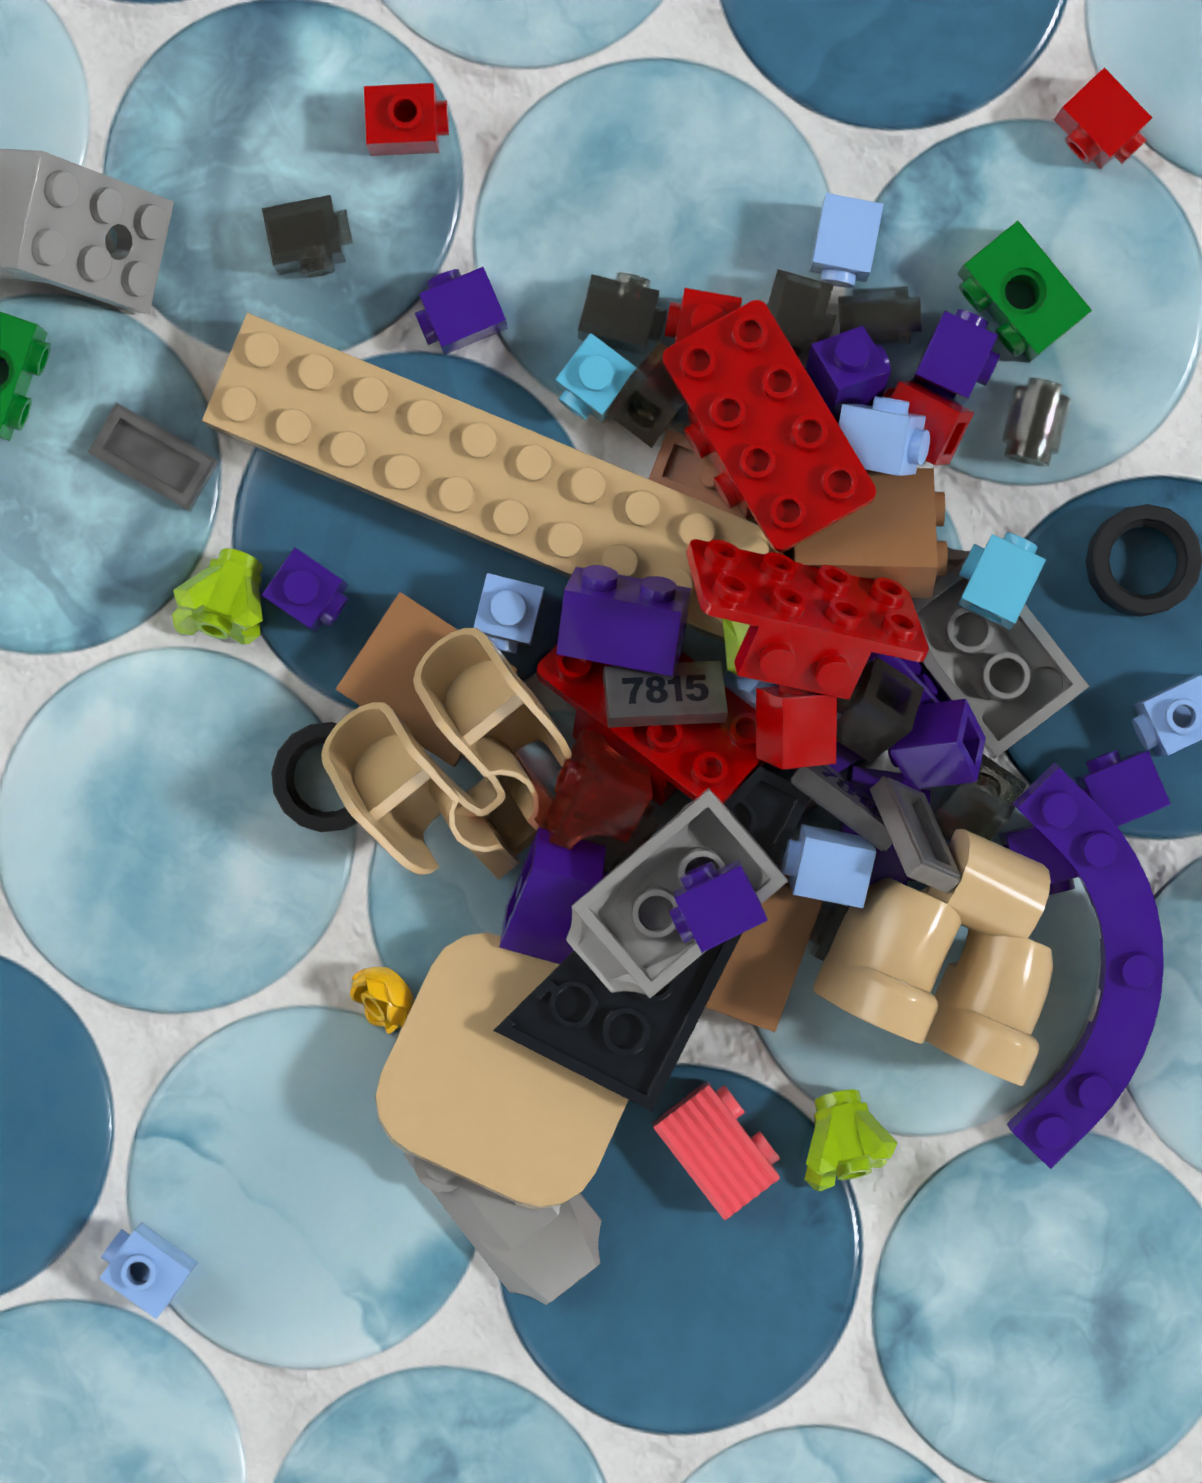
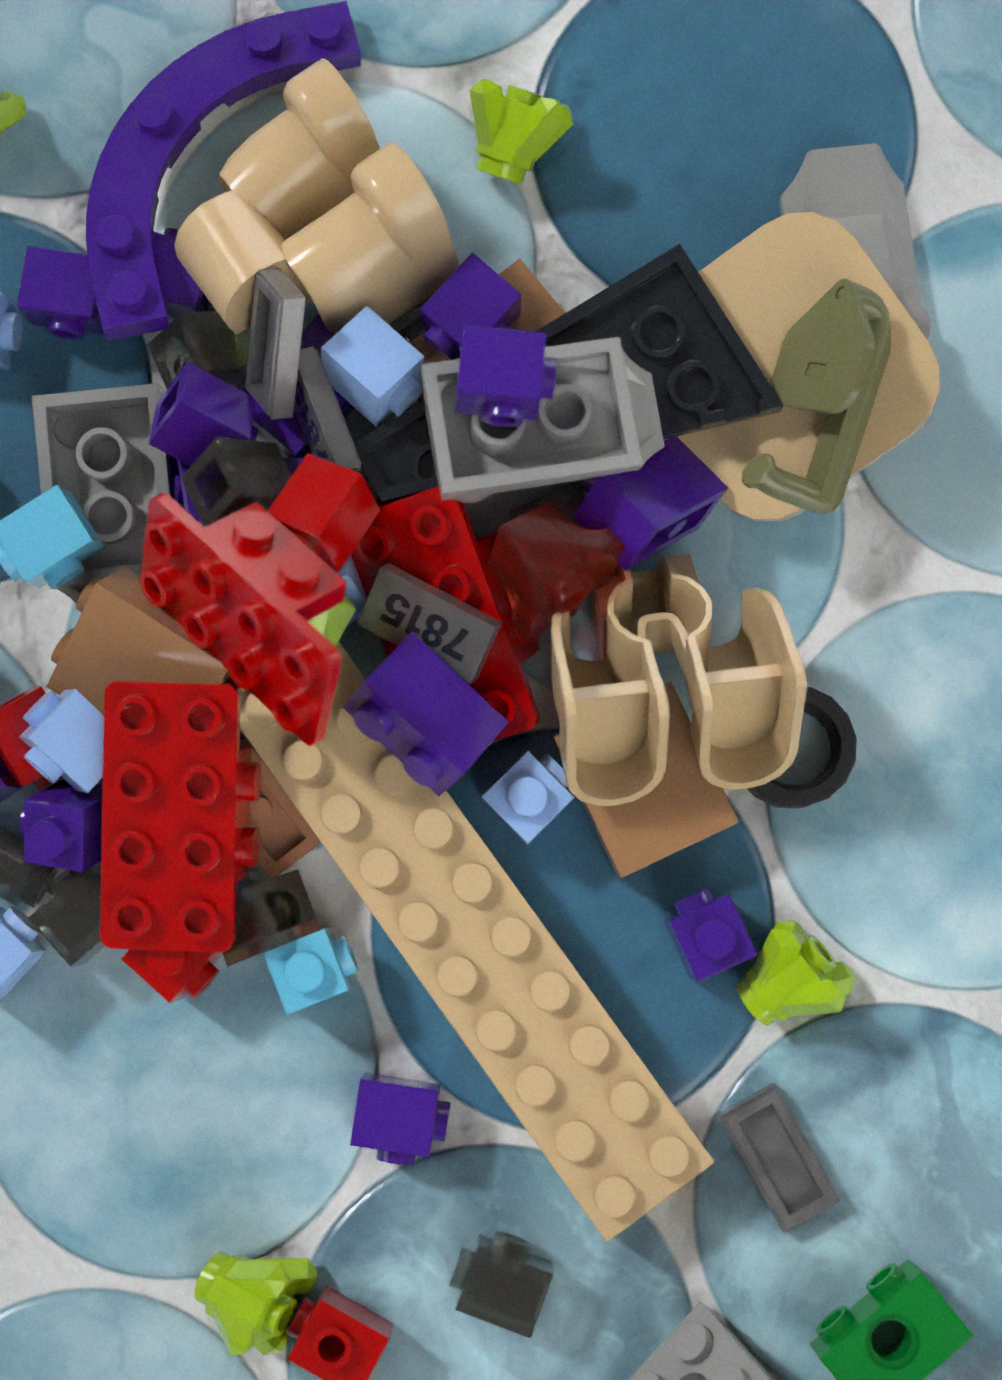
camera: 145 degrees left, 5 degrees down
(384, 997) = (863, 513): yellow plate -> none
(469, 1077) = (832, 367): none -> olive piece
(486, 110) = (253, 1299): none -> lime rock
(622, 312) = (245, 1017): clear smoke brick -> none
(717, 1148) = (636, 191): coral brick -> none
(781, 956) = (468, 297): none -> dark purple brick

